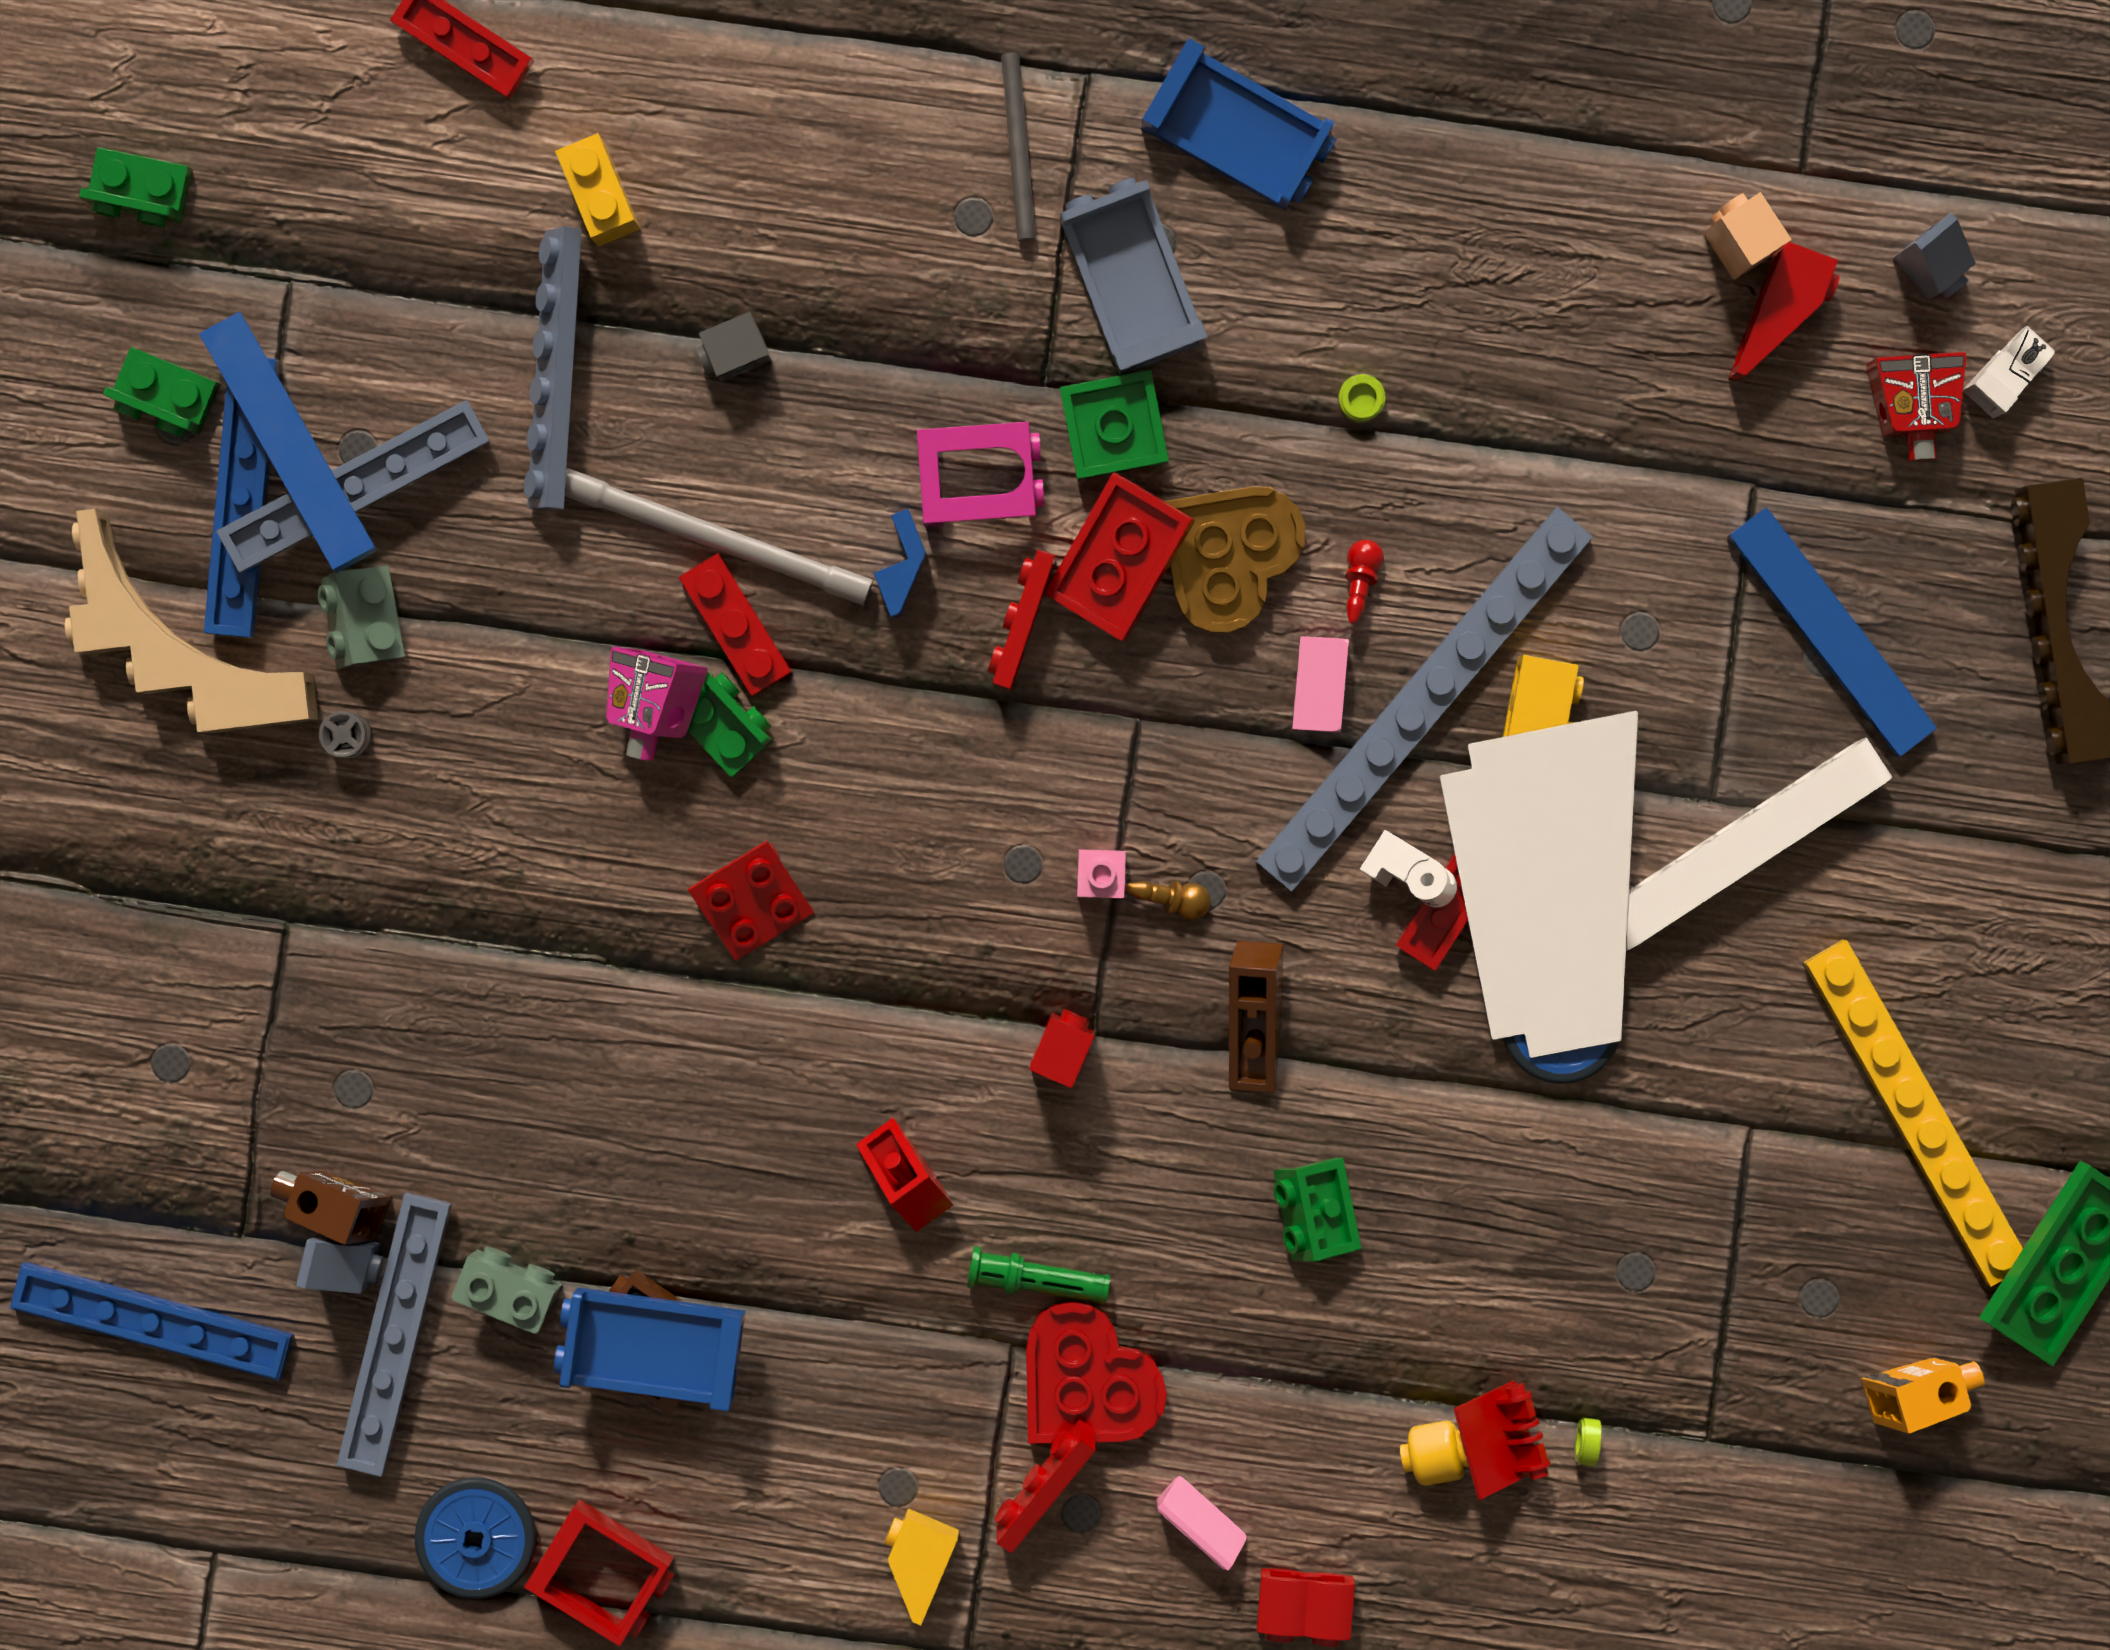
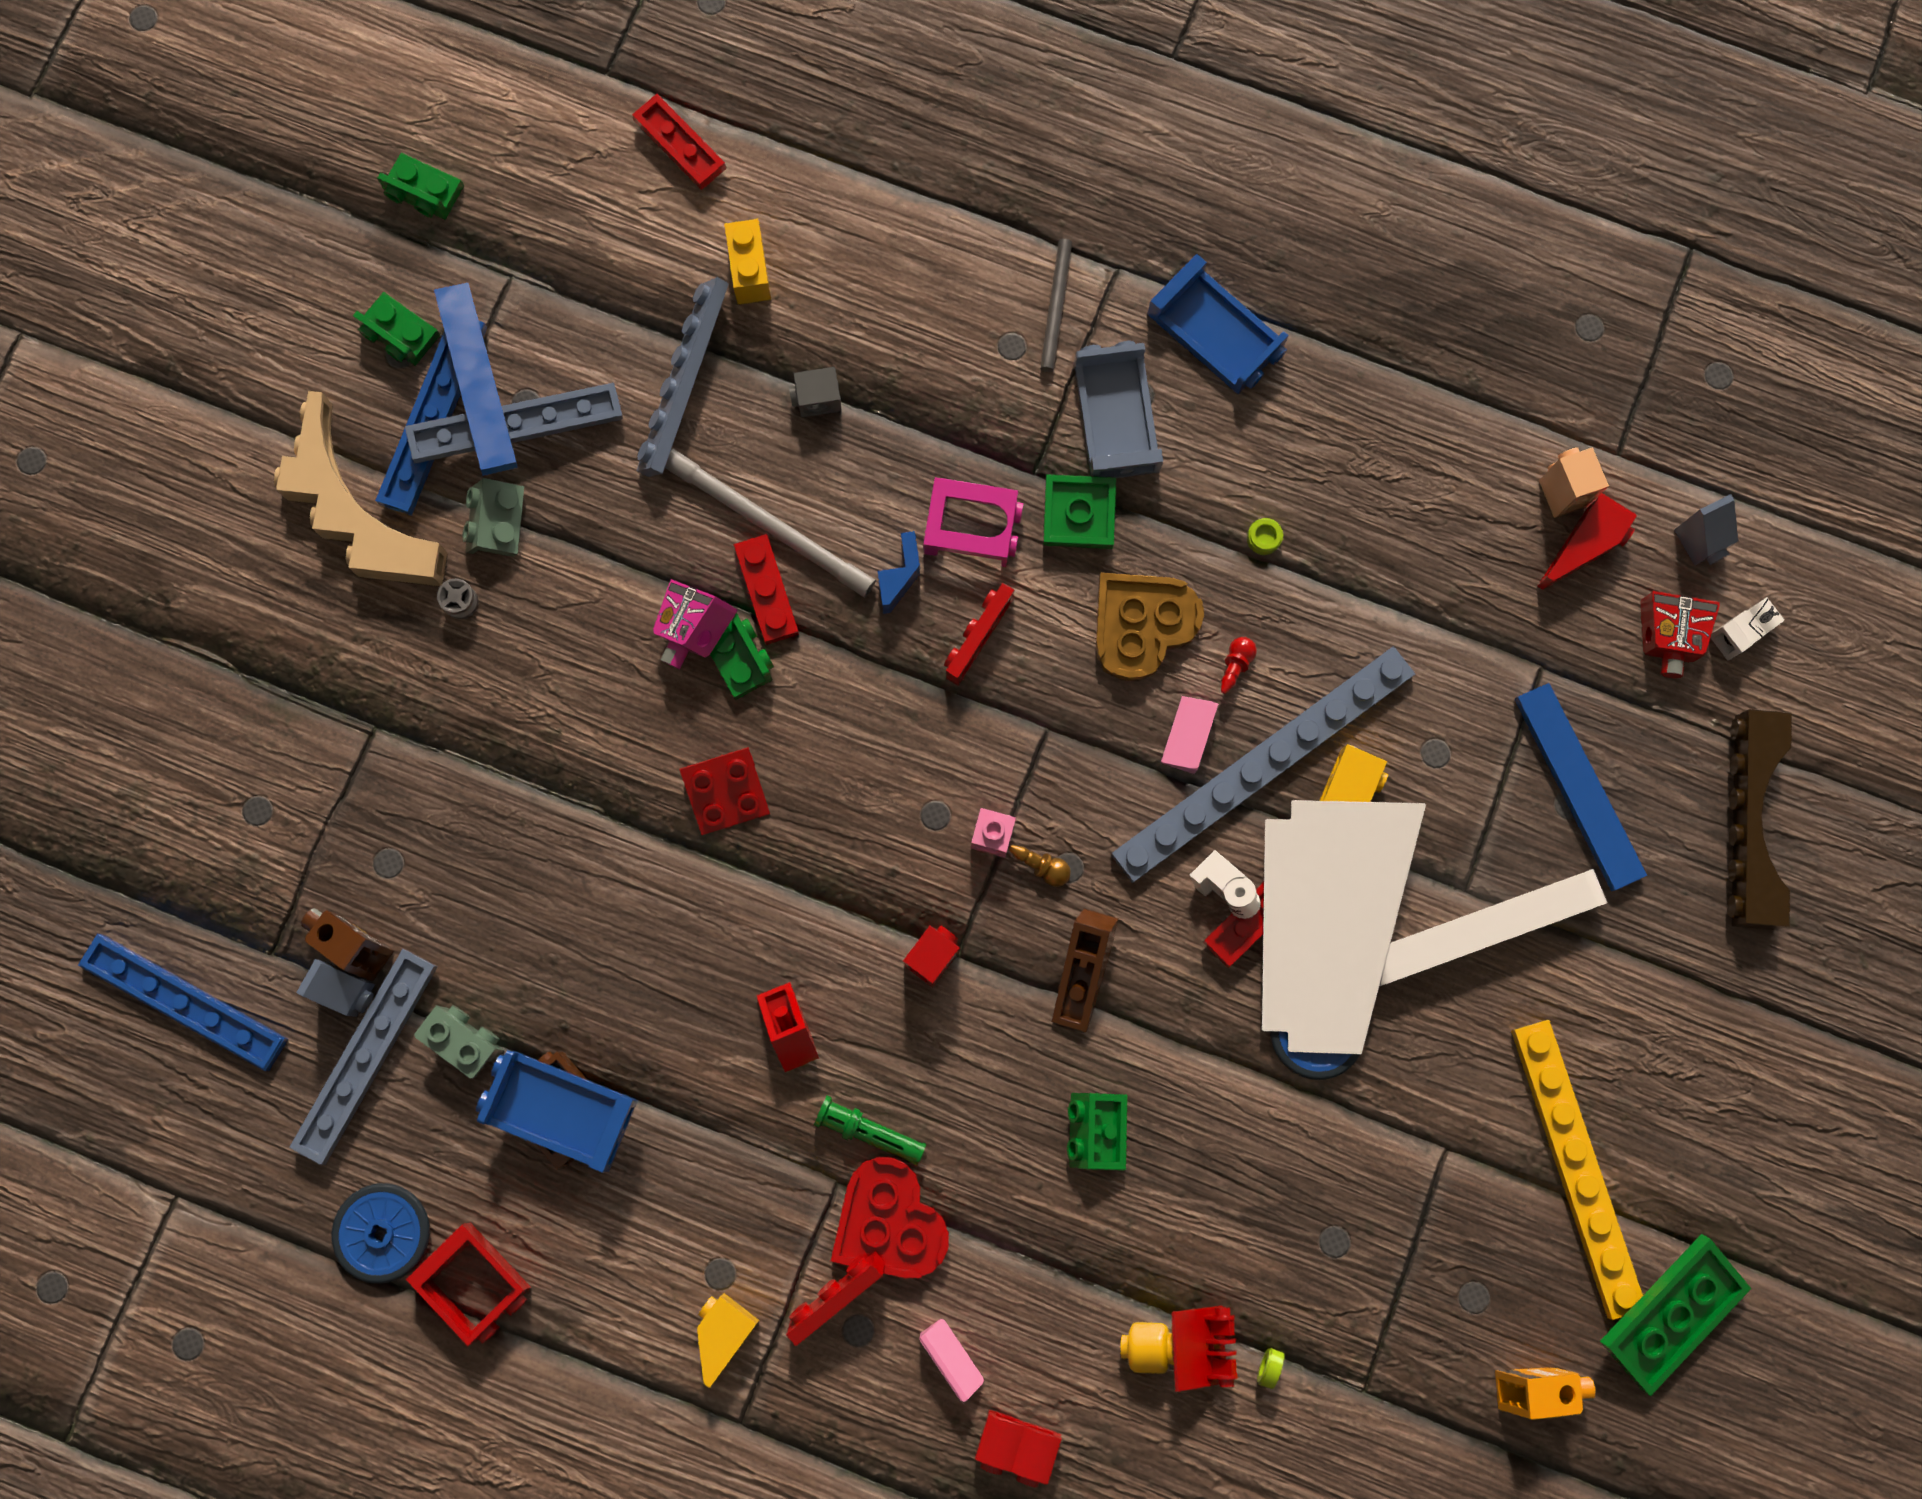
camera: 10 degrees right, 10 degrees down
(1119, 556) = (1062, 604): red plate -> none

